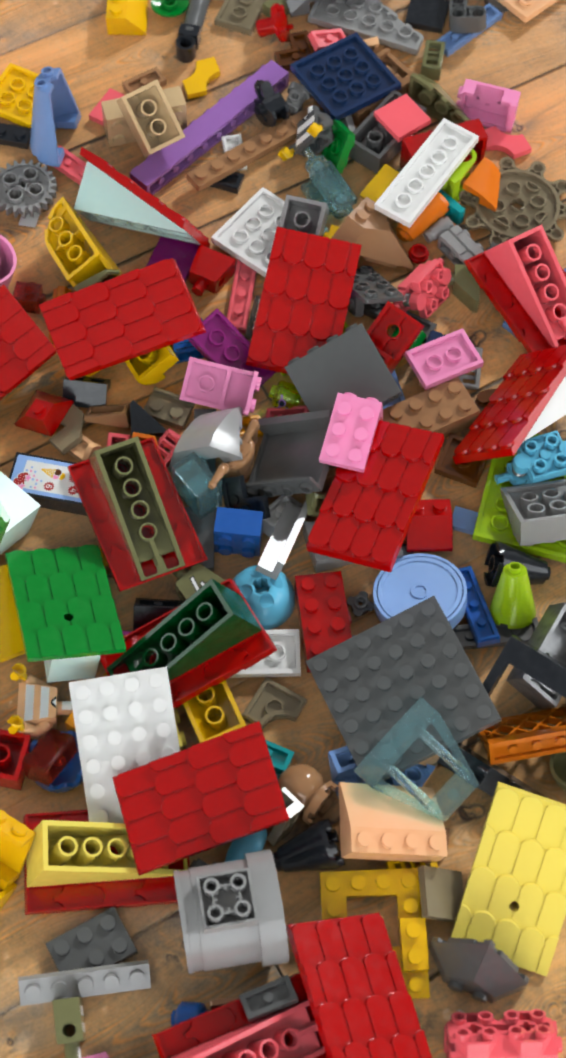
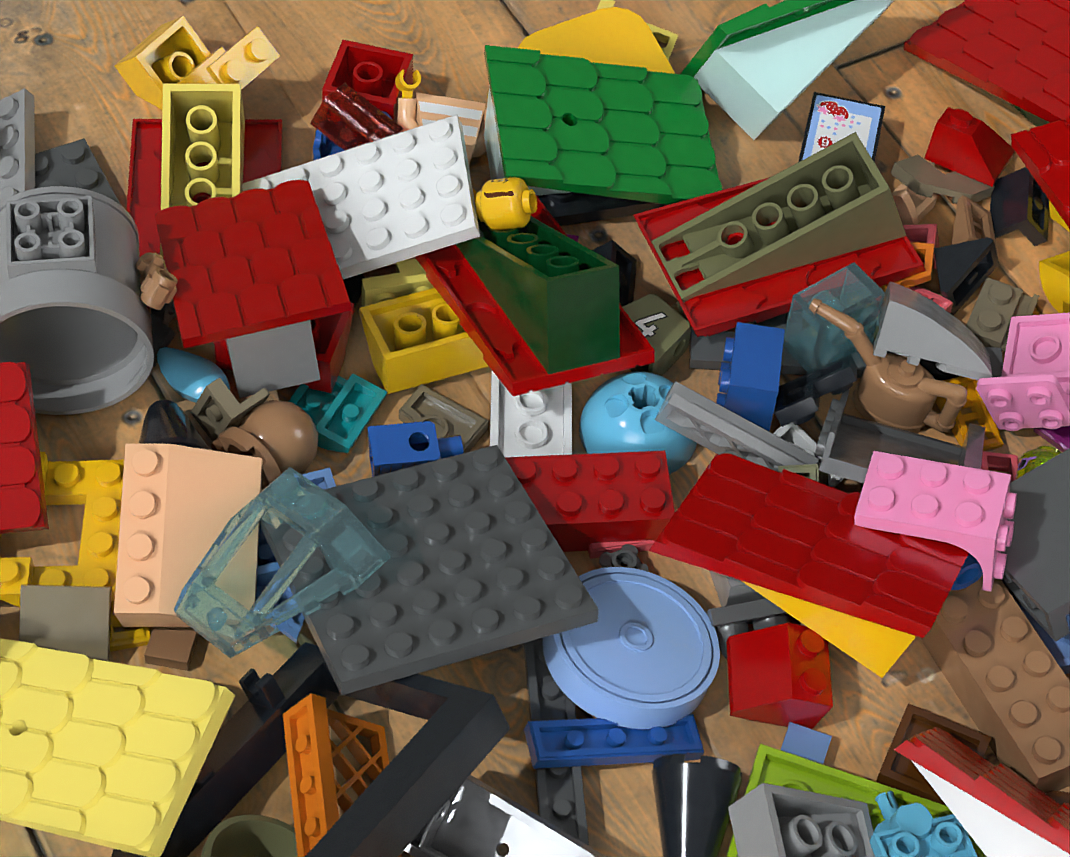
camera: 90 degrees right, 10 degrees down
(140, 652) = (505, 203): none -> yellow head
(237, 841) = (157, 283): none -> medium nougat bar
(308, 713) = (408, 445): none -> blue torso
(513, 598) = (617, 792): lime cone -> none

